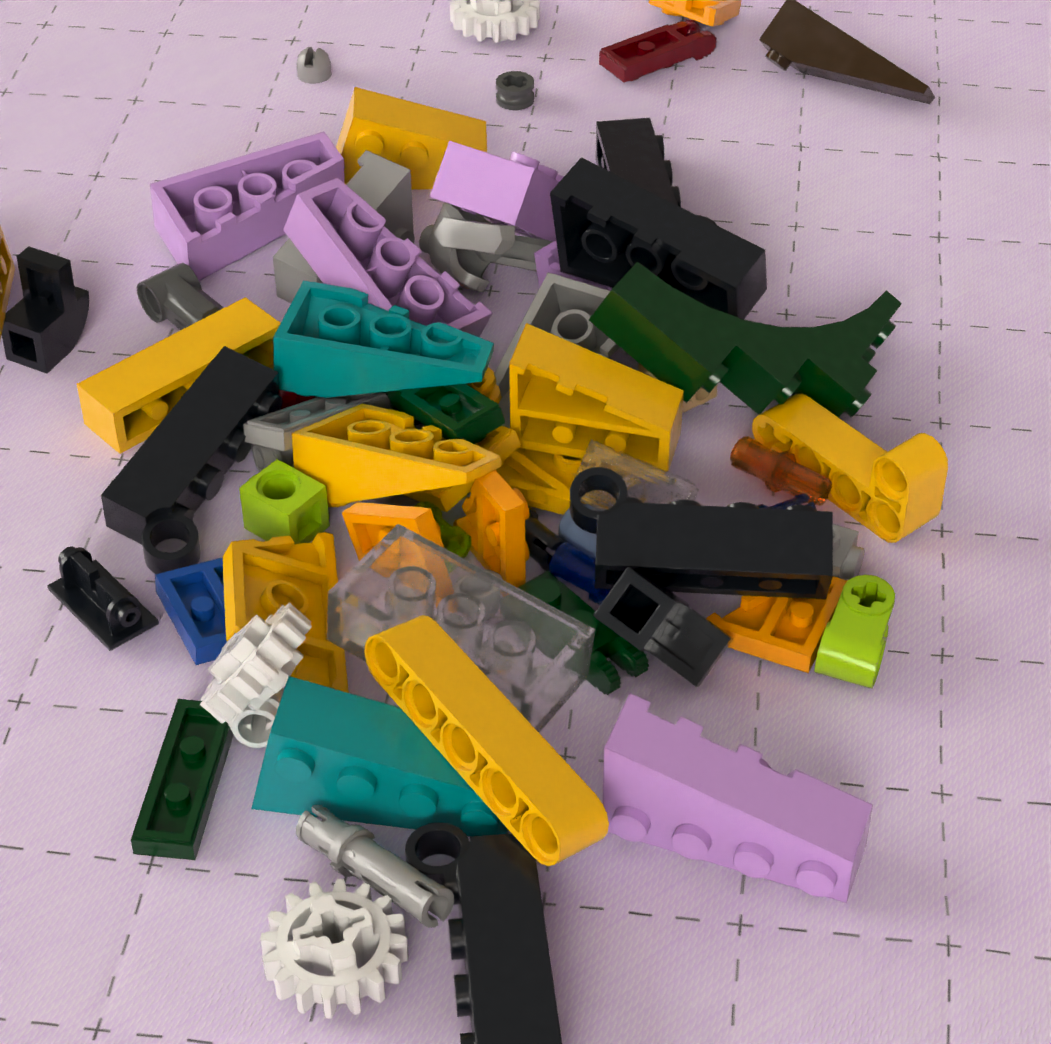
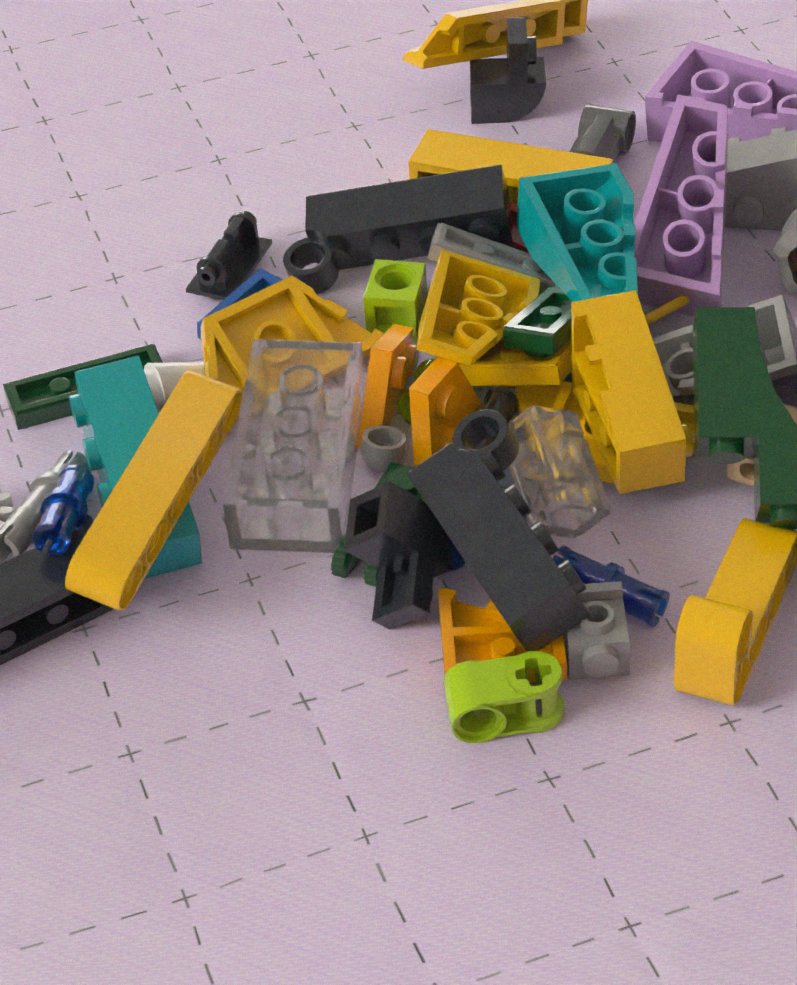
camera: 65 degrees right, 0 degrees up
(255, 663) = (158, 336): white gear -> none
(431, 830) = (63, 510): none -> clear blue pin
(729, 806) = (215, 680): lavender wedge -> none
(779, 470) = (697, 565): clear orange axle -> none

